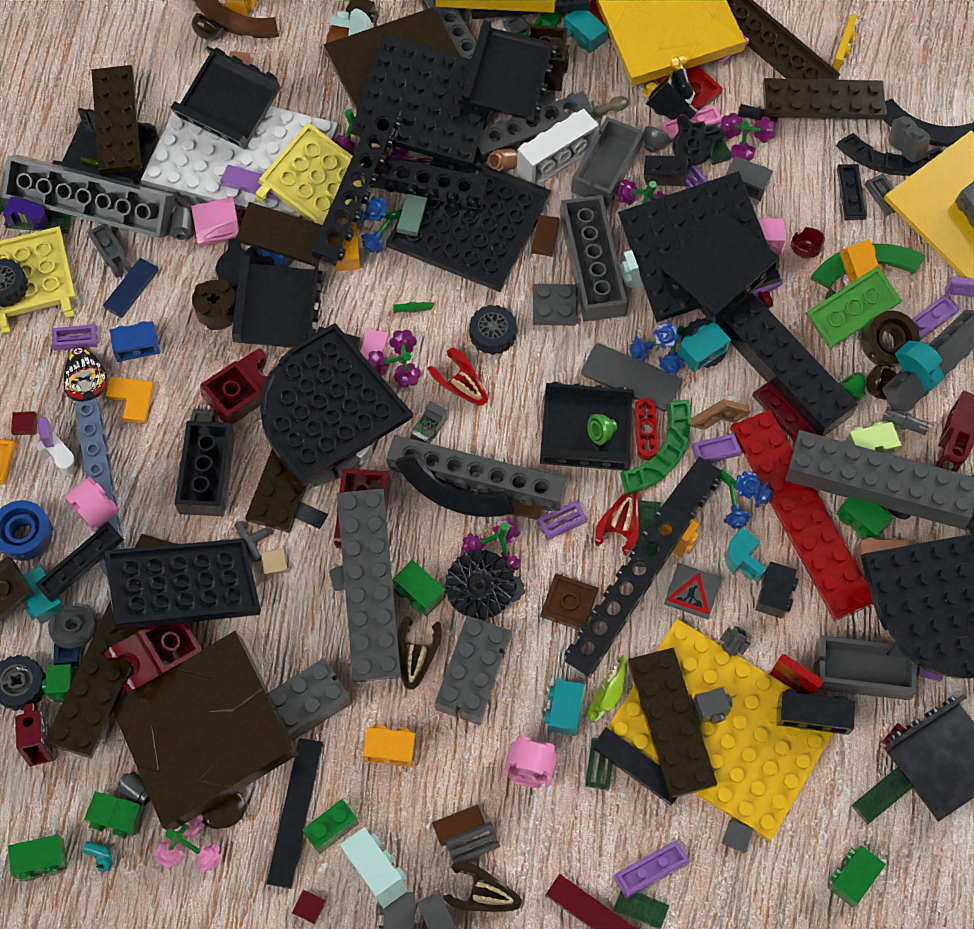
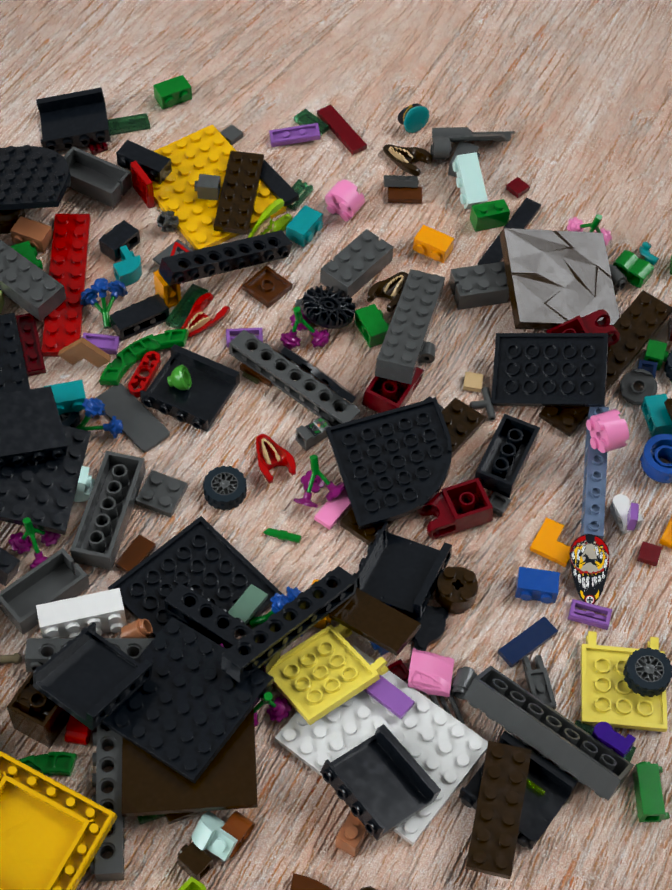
camera: 160 degrees left, 10 degrees down
(79, 562) = (631, 408): black tile -> none

